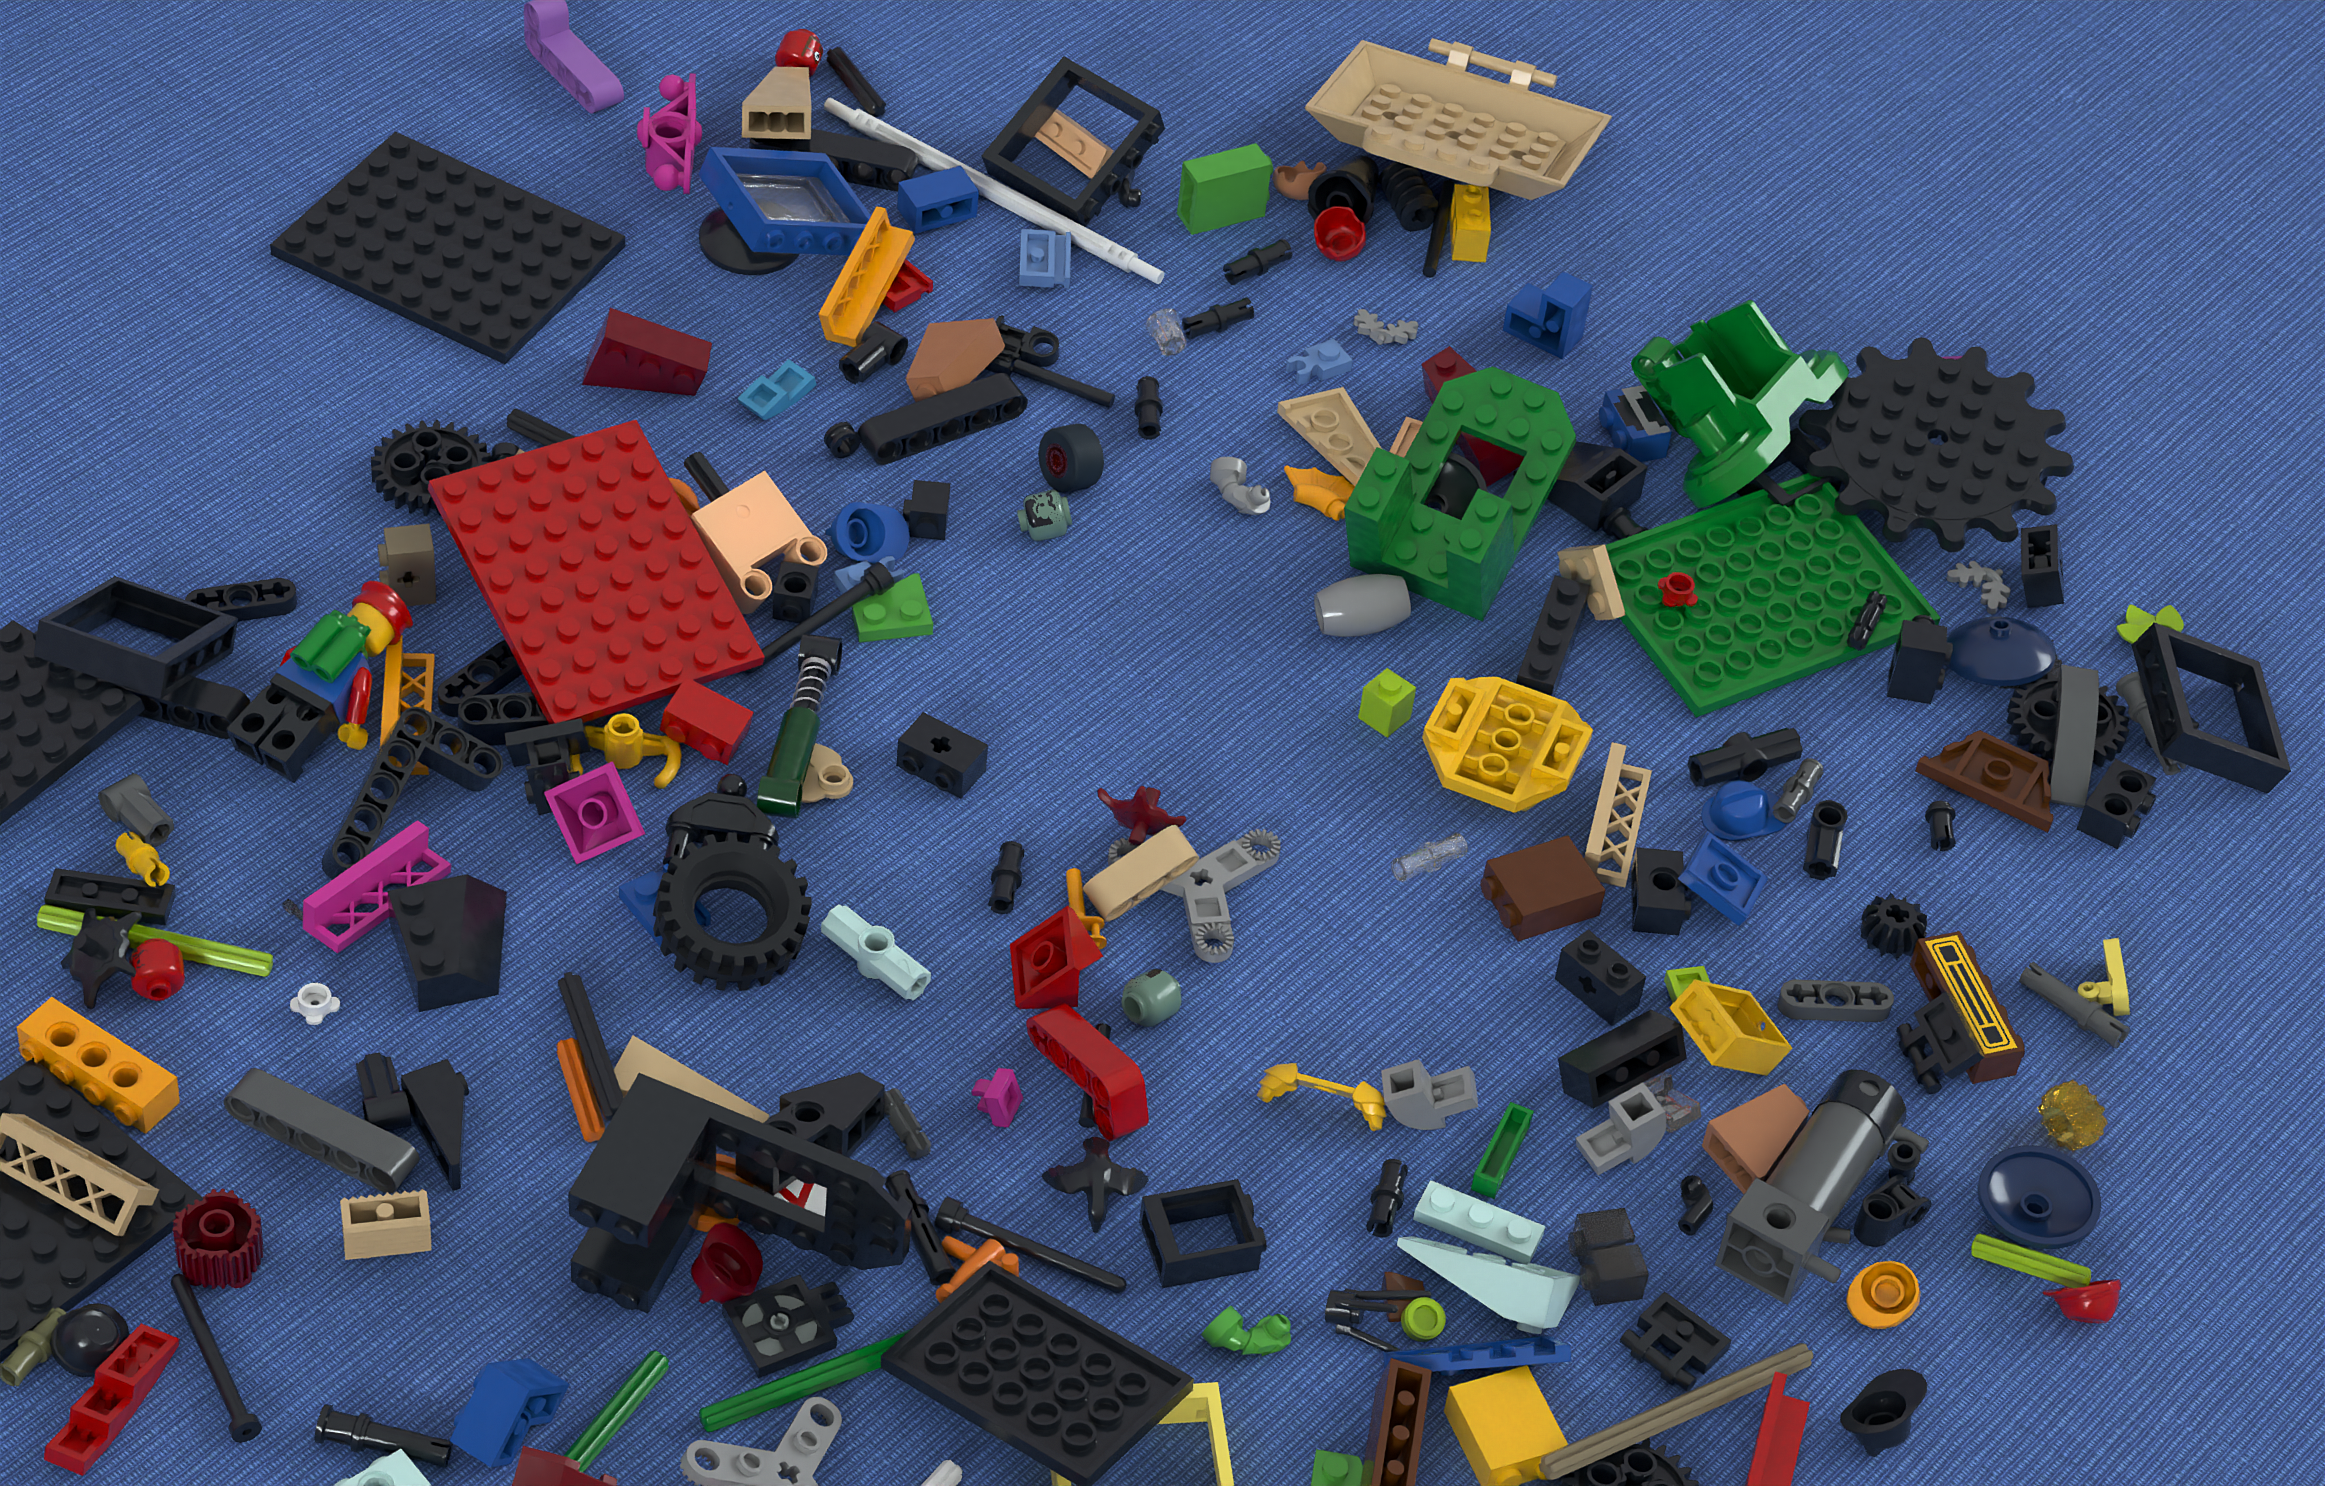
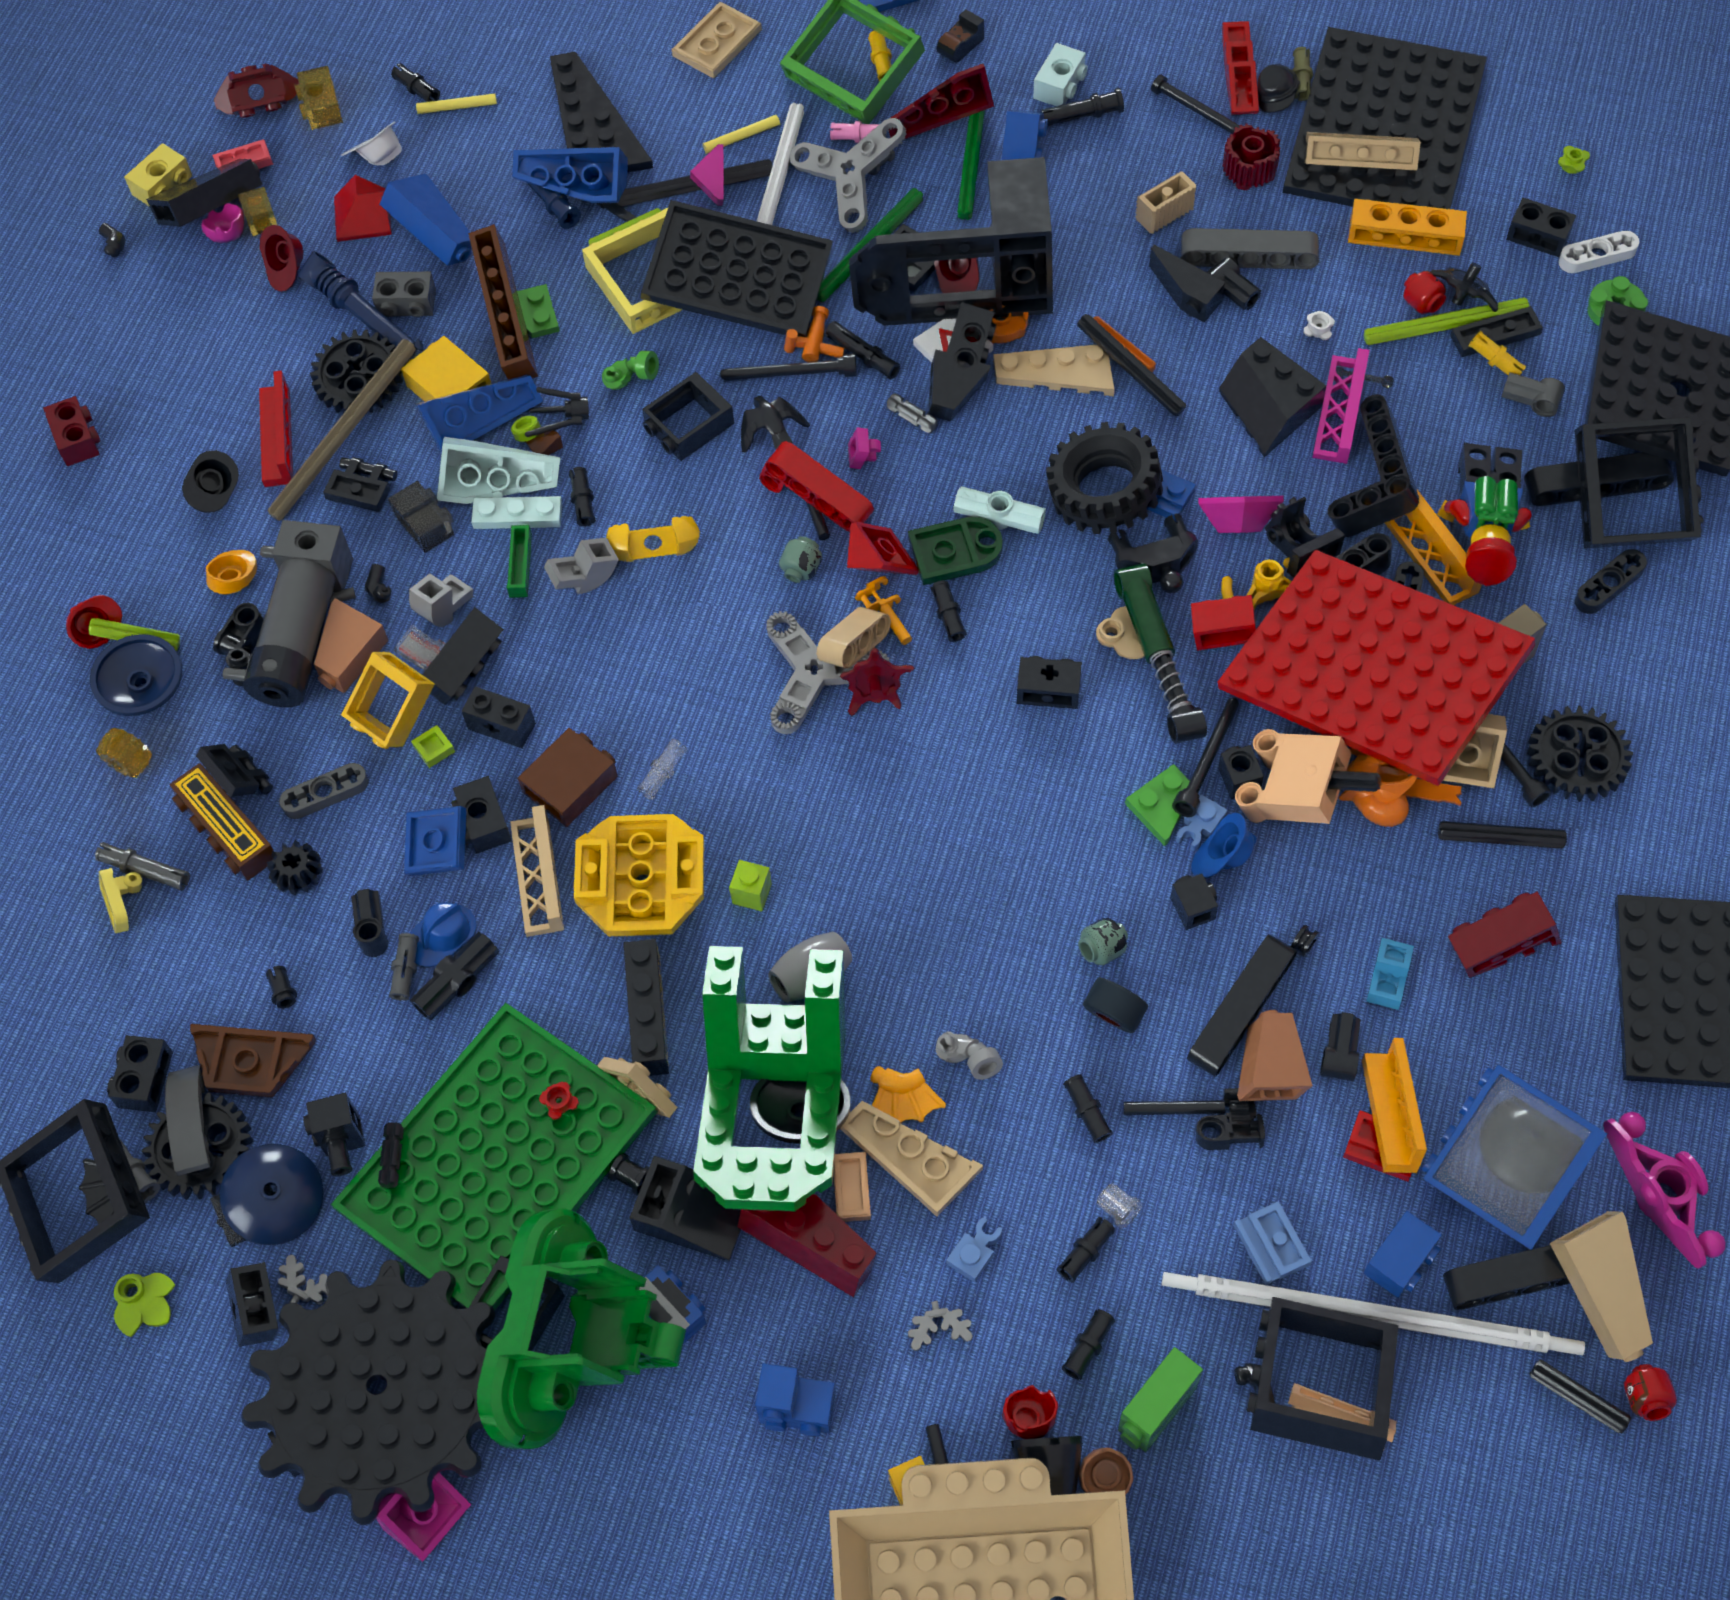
camera: 165 degrees right, 15 degrees up
(957, 938) = (954, 548): none -> dark green plate

